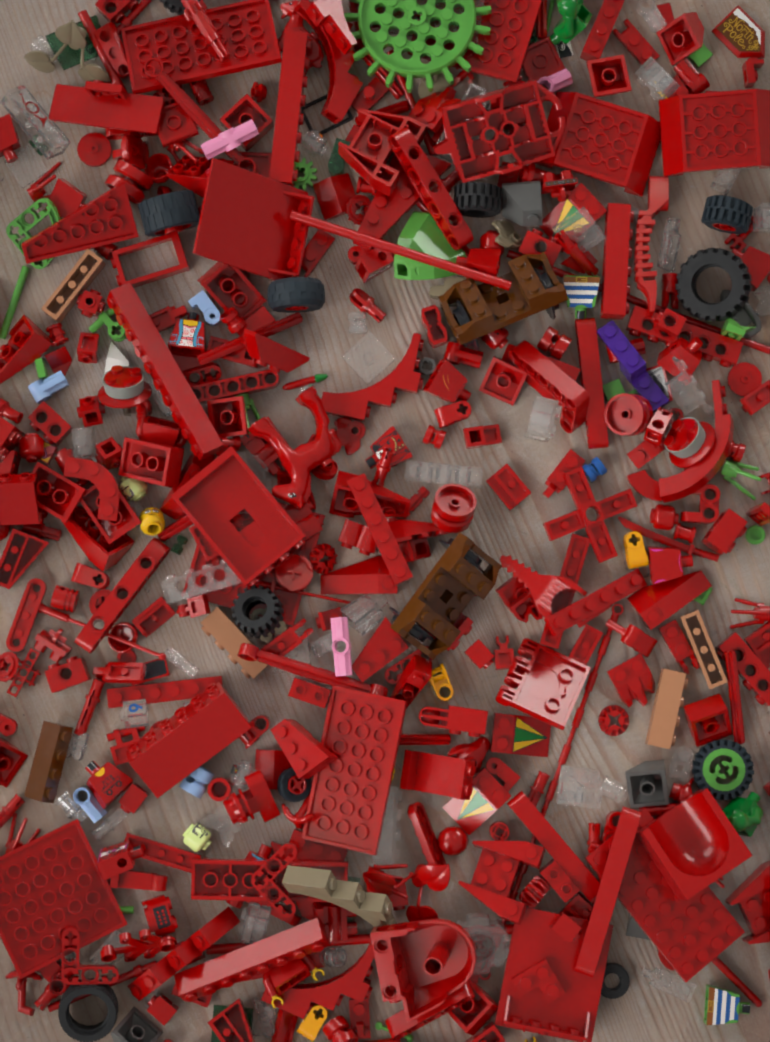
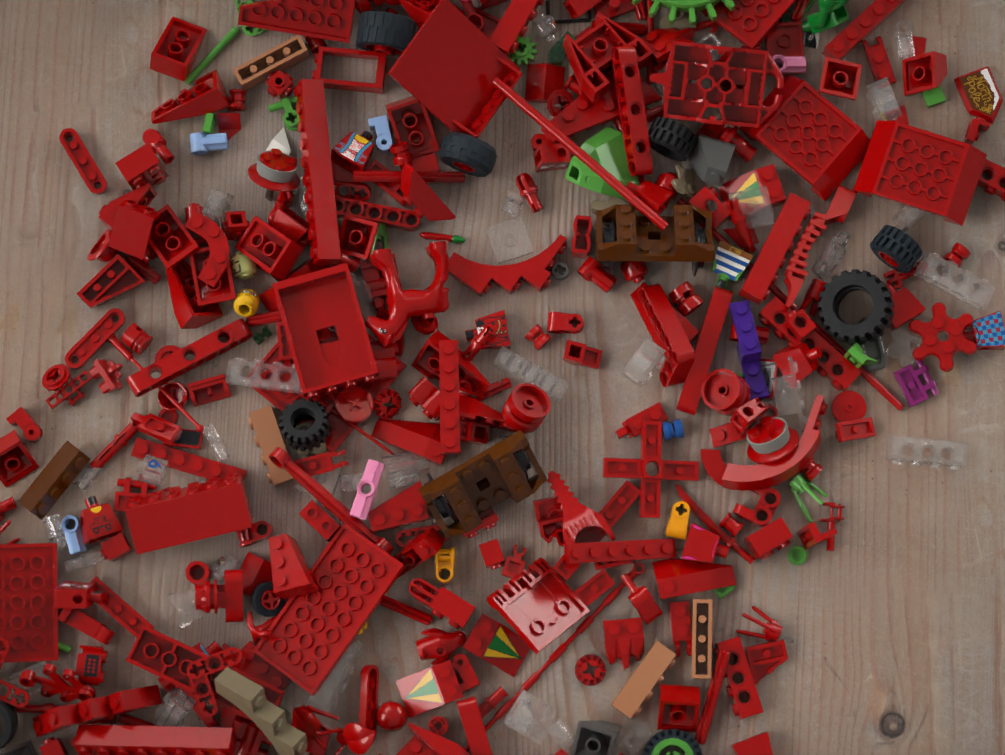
camera: 25 degrees right, 5 degrees down
(31, 447) = (168, 189): red head -> none
(49, 452) = (178, 199): tile -> none
(53, 420) = (197, 175): red brick -> none
(58, 682) = (117, 414): red brick -> none
(87, 576) = (166, 327): red piece -> none
(88, 347) = (259, 123): red bracket -> none
(91, 411) = (236, 180): red brick -> none
(168, 317) = (343, 126): red hinge -> none
(196, 607) = (251, 397): red plate -> none
(196, 781) = (180, 556): light blue wheel -> none
(197, 837) = (157, 609): yellowish green head -> none
(316, 250) = (504, 124): red hinge -> none
(324, 620) = (362, 459): red bracket -> none
(346, 435) = (458, 304): red plate -> none
(437, 774) = (403, 646): red panel -> none
(447, 383) = (571, 293): red torso -> none
(503, 381) = (624, 313): red slope -> none
(508, 487) = (586, 412): red plate -> none
(558, 188) = (751, 159): red hips -> none
(612, 389) = (722, 362): bright green tile -> none
(663, 517) = (718, 501): red head -> none
(693, 81) = (916, 112): red piece -> none

